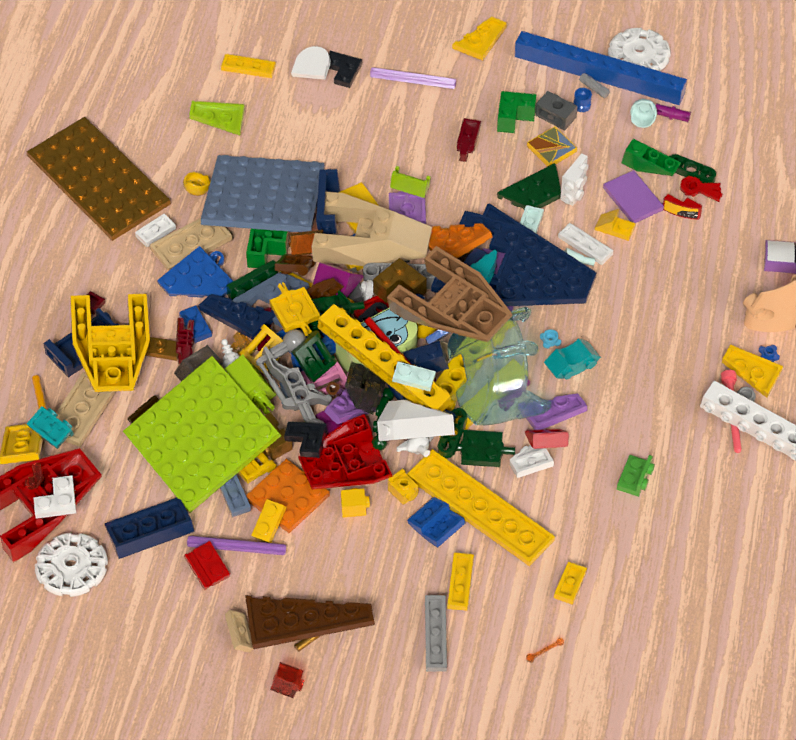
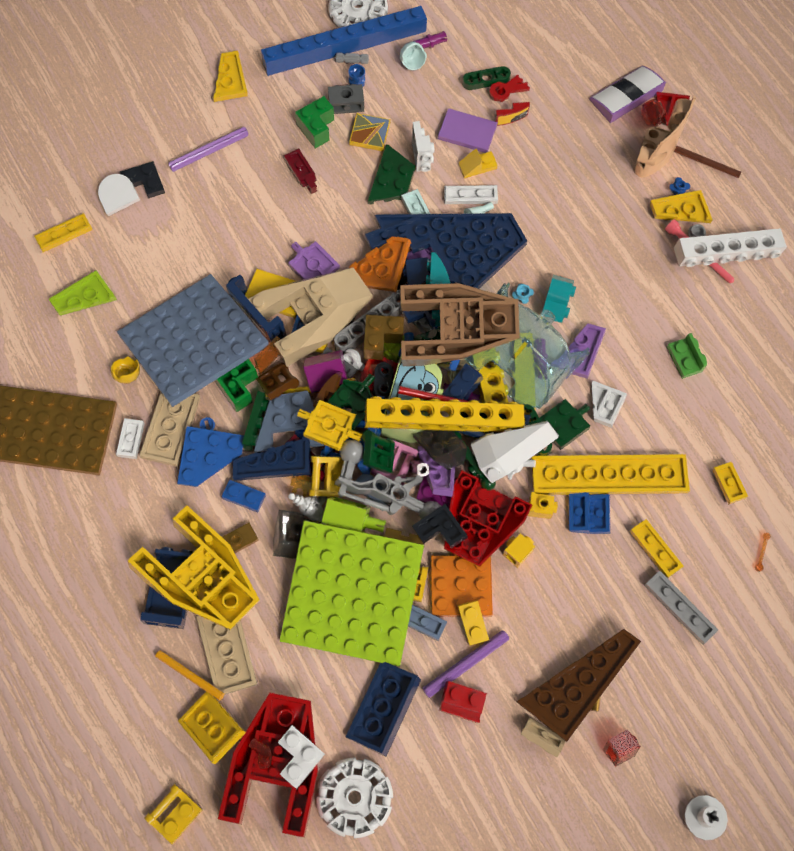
camera: 45 degrees left, 15 degrees up
(50, 427) = (225, 694): teal bracket -> none
(95, 302) = (137, 542): dark red tile -> none
(143, 409) = (278, 607): dark brown axle -> none
(184, 339) = (254, 519): dark red hinge -> none
(409, 183) = (300, 243): lime hinge -> none
(414, 376) = (485, 411): light aqua plate -> none
(547, 438) = (602, 377): slope -> none
(648, 160) = (451, 92): green slope -> none

